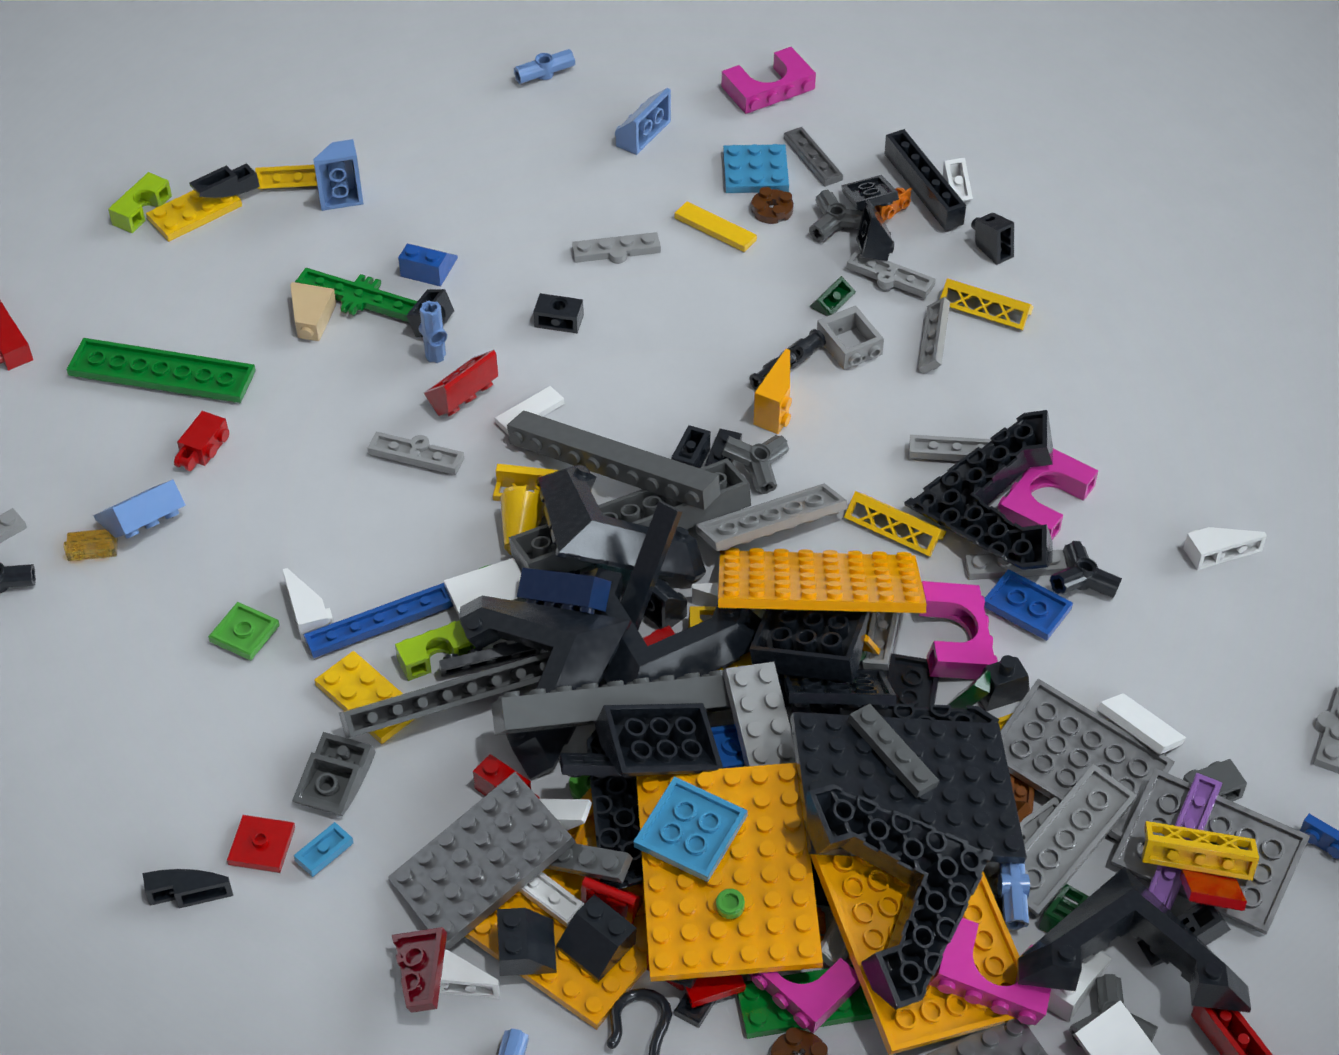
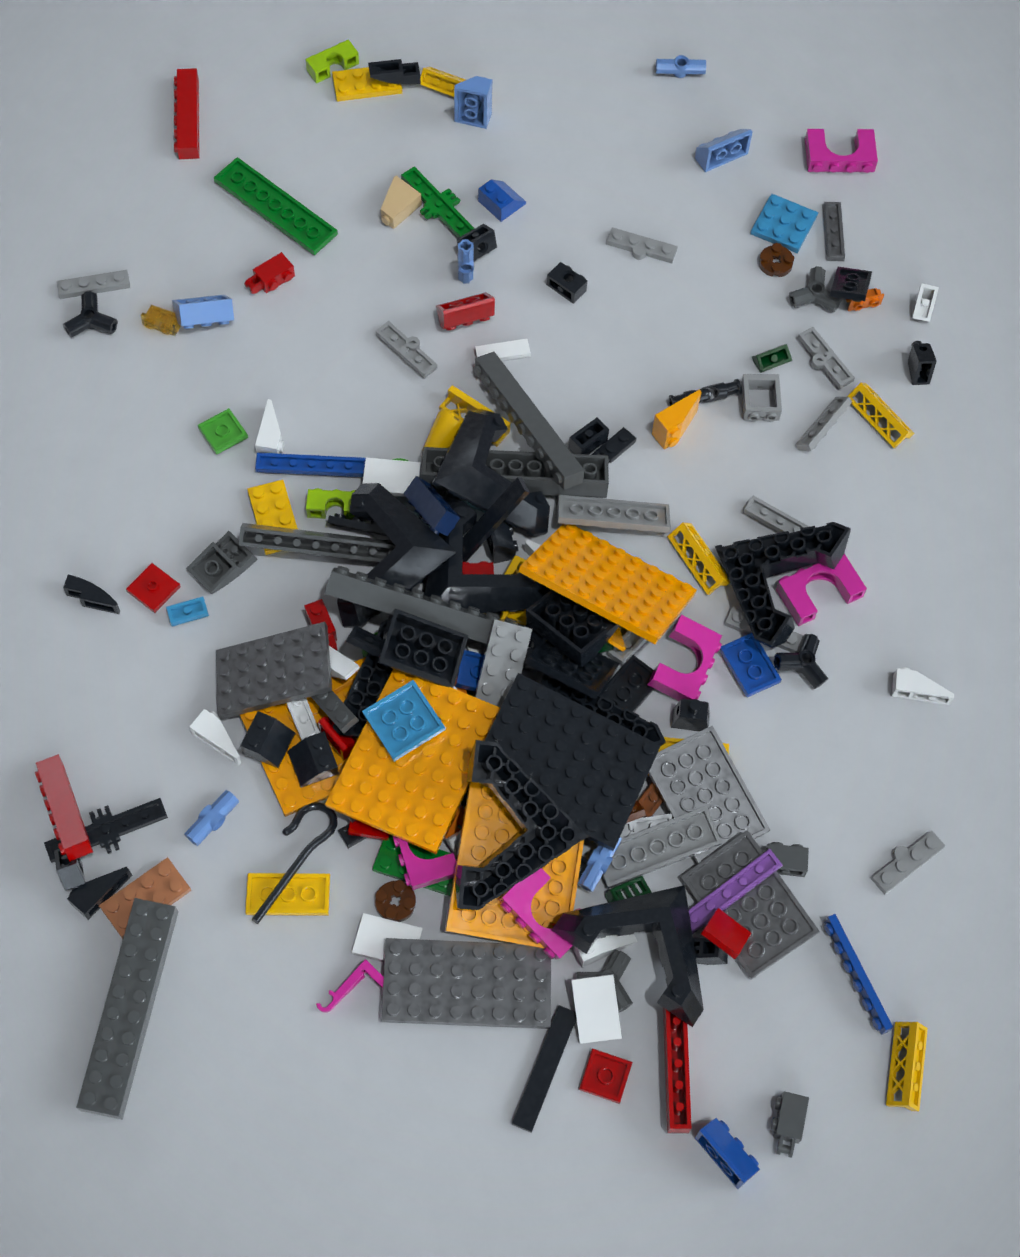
camera: 25 degrees right, 15 degrees up
(421, 966) = (197, 721): dark red wing -> none
(715, 226) = (723, 260): yellow tile -> none
(730, 903) = (399, 783): bright green tile -> none
(758, 459) = (643, 462): dark grey piece -> none
(873, 235) = (830, 322): black slope -> none
(893, 750) = (567, 732): dark grey plate -> none
(925, 179) = (901, 290): black brick -> none
(972, 693) = (662, 712): dark green slope -> none
(1141, 723) = (767, 791): white tile -> none
(1199, 853) = (734, 904): yellow fence -> none

